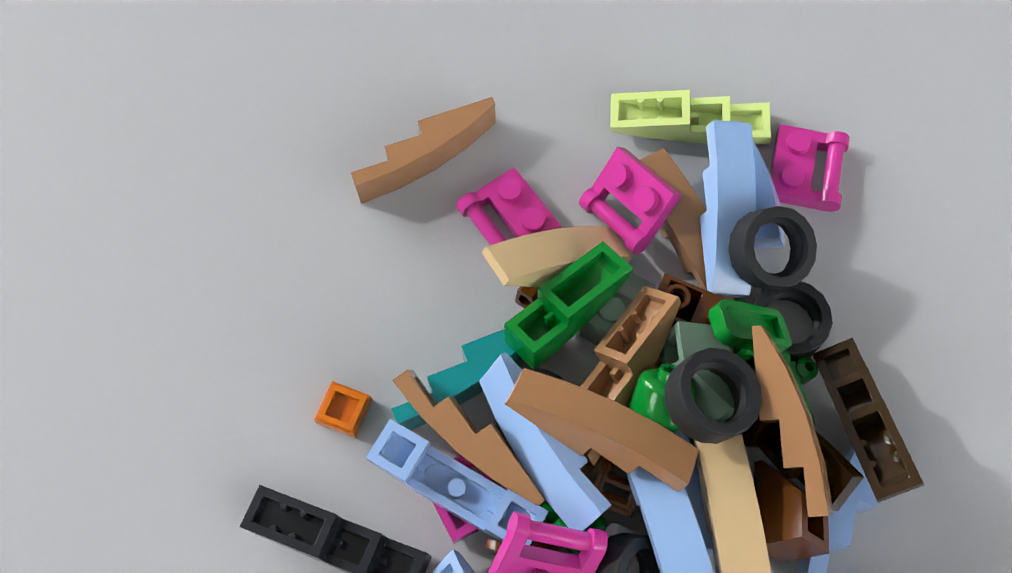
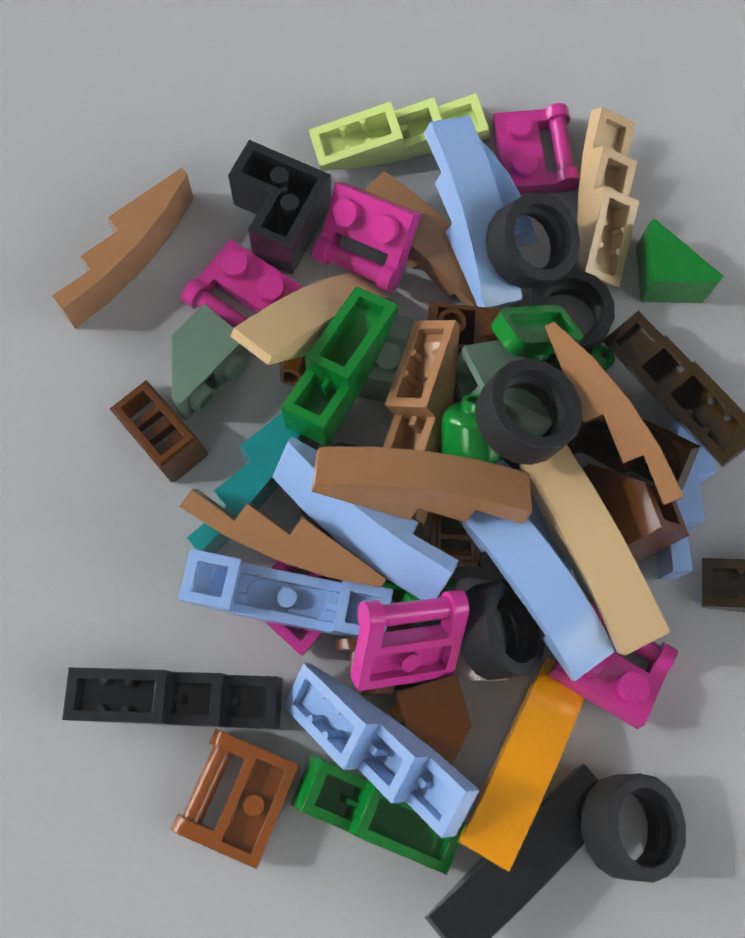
camera: 25 degrees left, 5 degrees up
(343, 409) = (133, 556): orange tile -> none
(411, 333) = (179, 451): none -> reddish brown slope
(455, 264) = (203, 360): none -> sand green slope
(572, 150) = (287, 203): none -> black brick
(855, 228) = (604, 203): none -> tan slope
(897, 310) = (671, 269): none -> green slope

